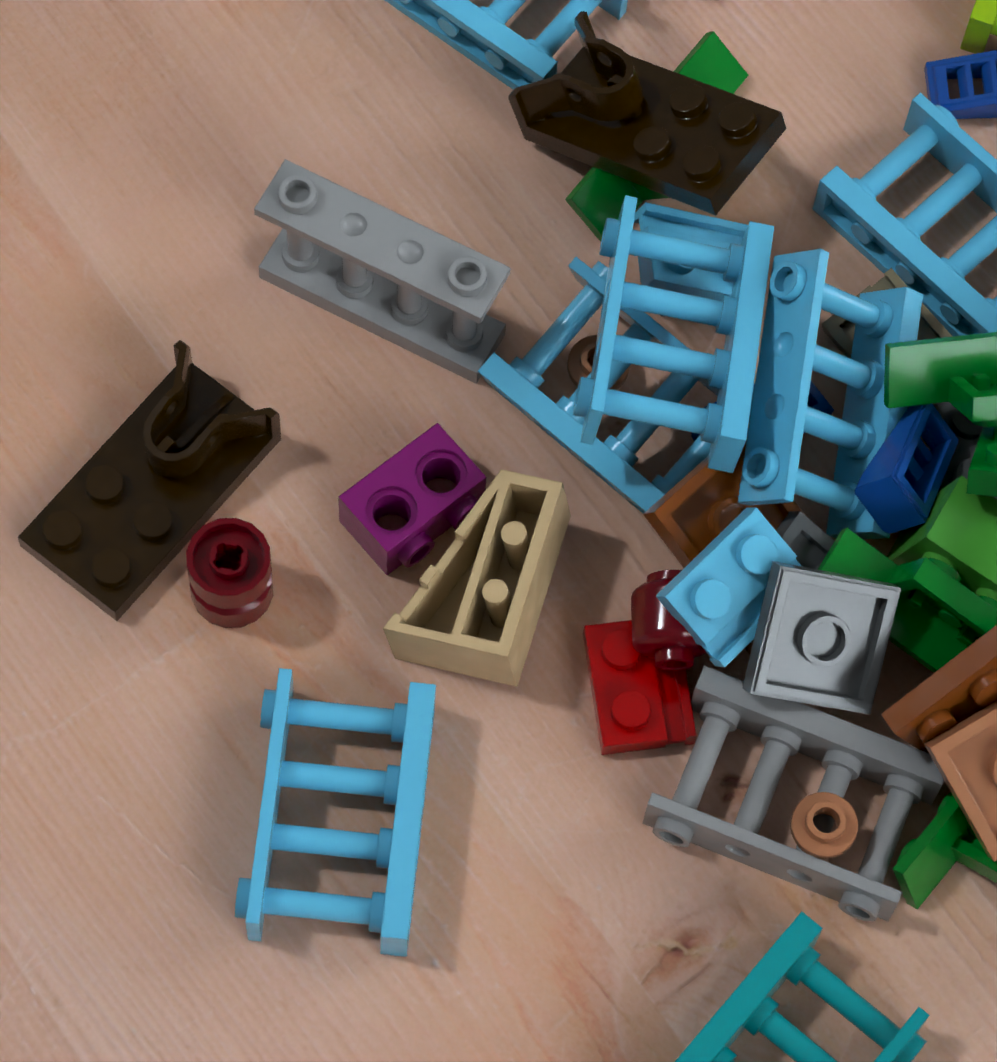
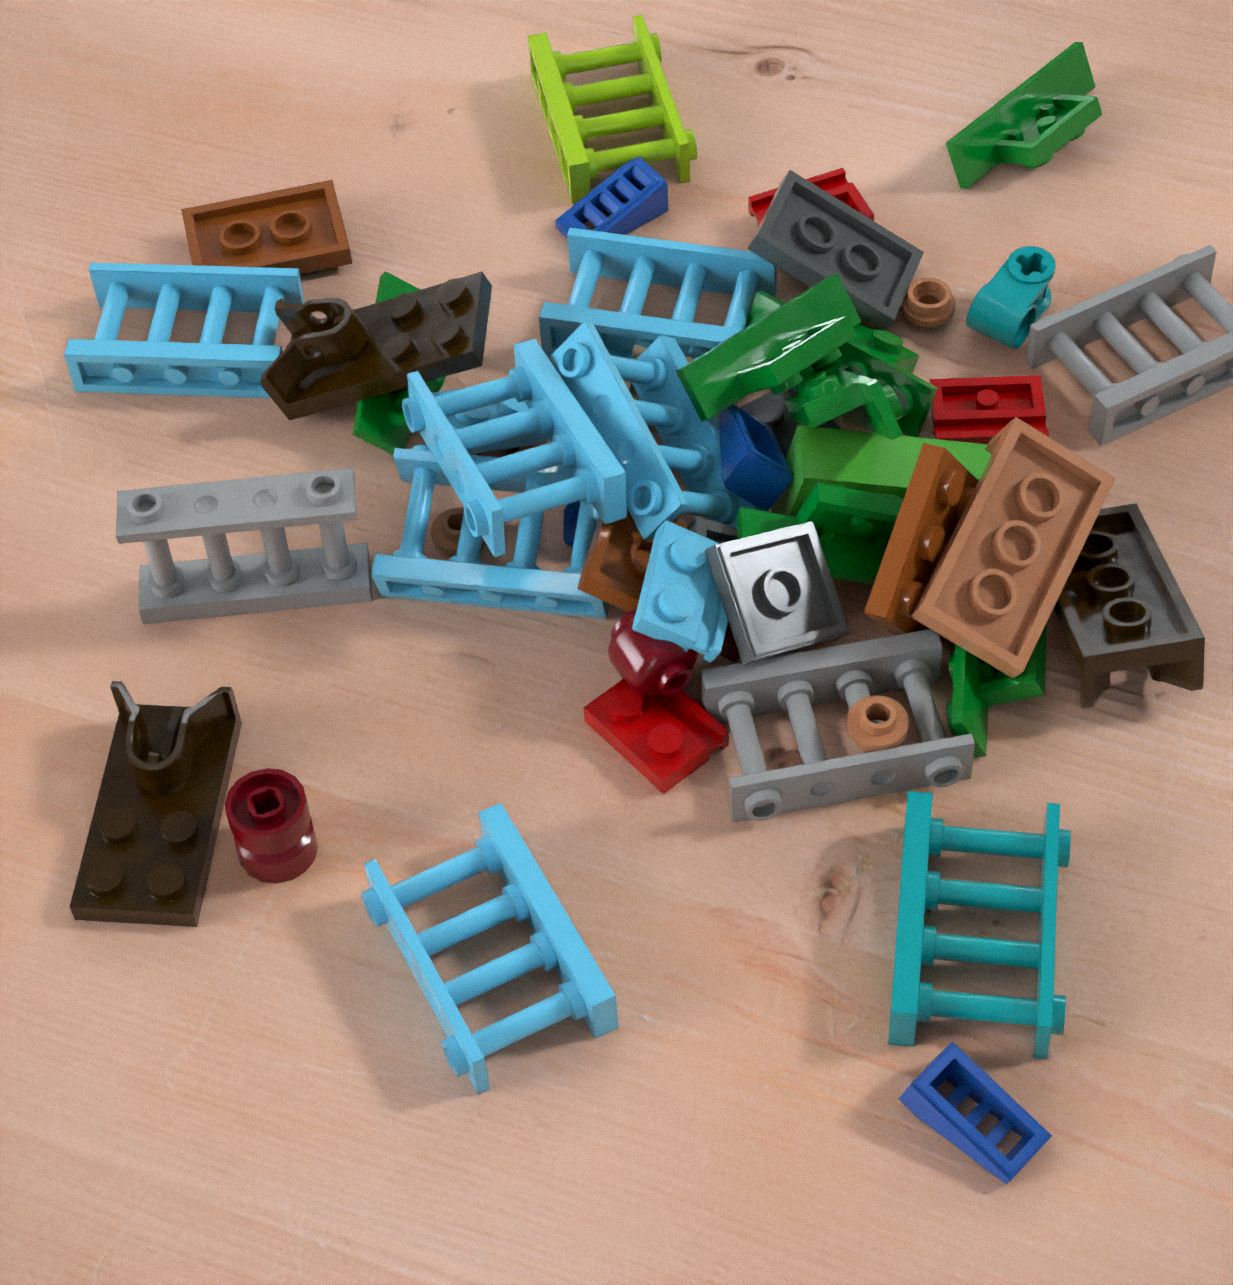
camera: 25 degrees left, 15 degrees down
(400, 490) = (388, 682): magenta brick -> none
(489, 585) = (487, 720): tan wedge -> none

